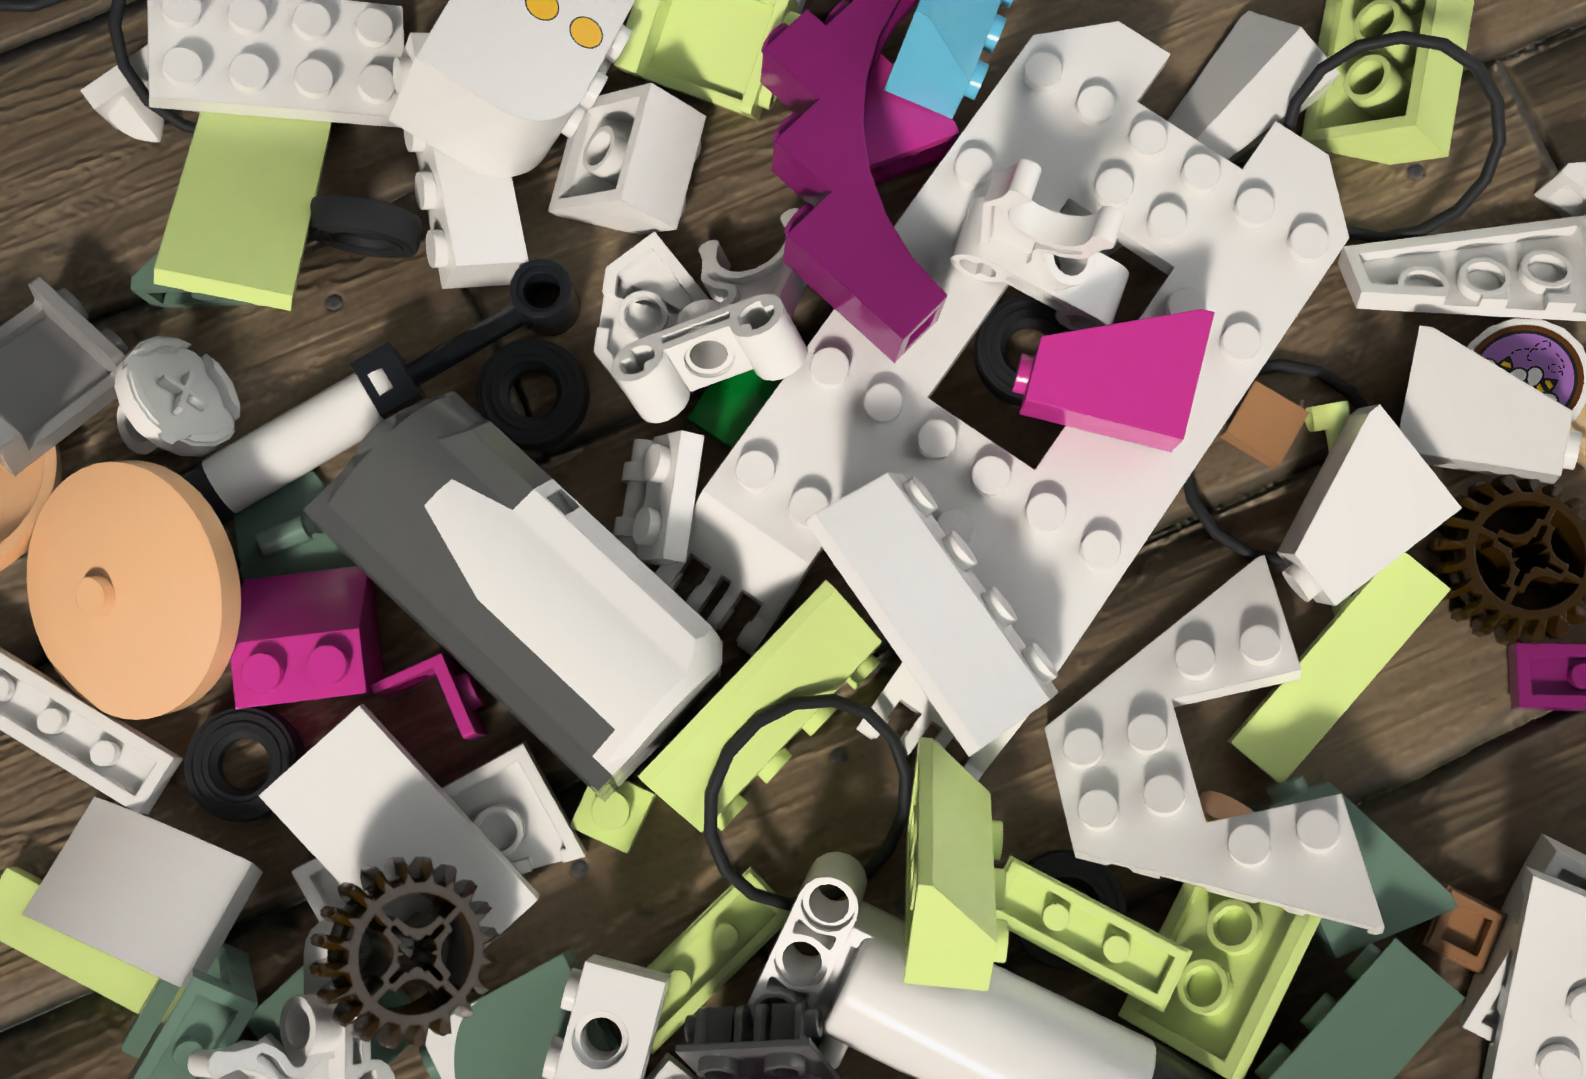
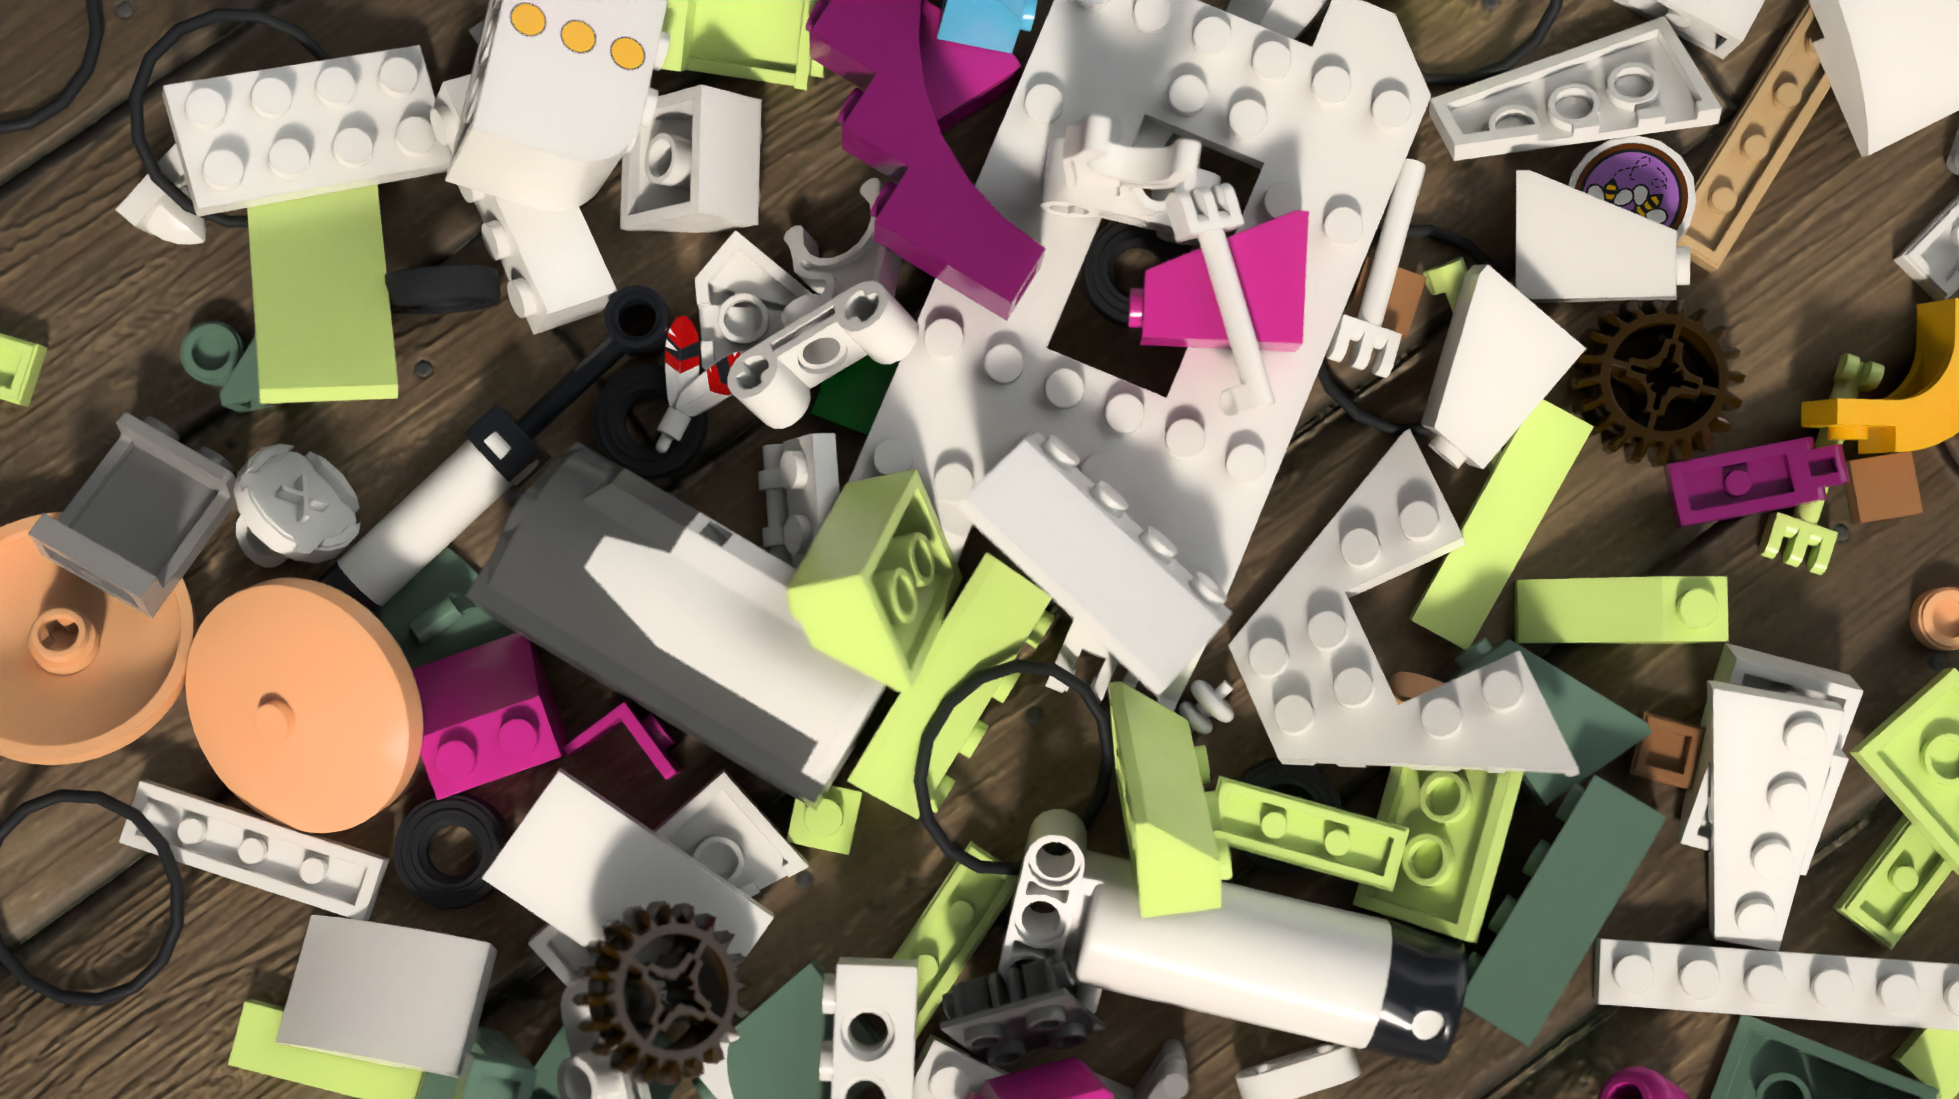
camera: 15 degrees left, 5 degrees up
(136, 241) = (212, 352): none -> sand green tile
(573, 368) = (686, 389): none -> piece
(710, 582) = (877, 579): none -> yellowish green slope
(1014, 782) = (1210, 703): none -> white hair
(1116, 297) = (1208, 216): none -> white hinge
(1243, 446) = (1367, 328): none -> white hinge
(1447, 778) = (1622, 610): none -> yellowish green slope

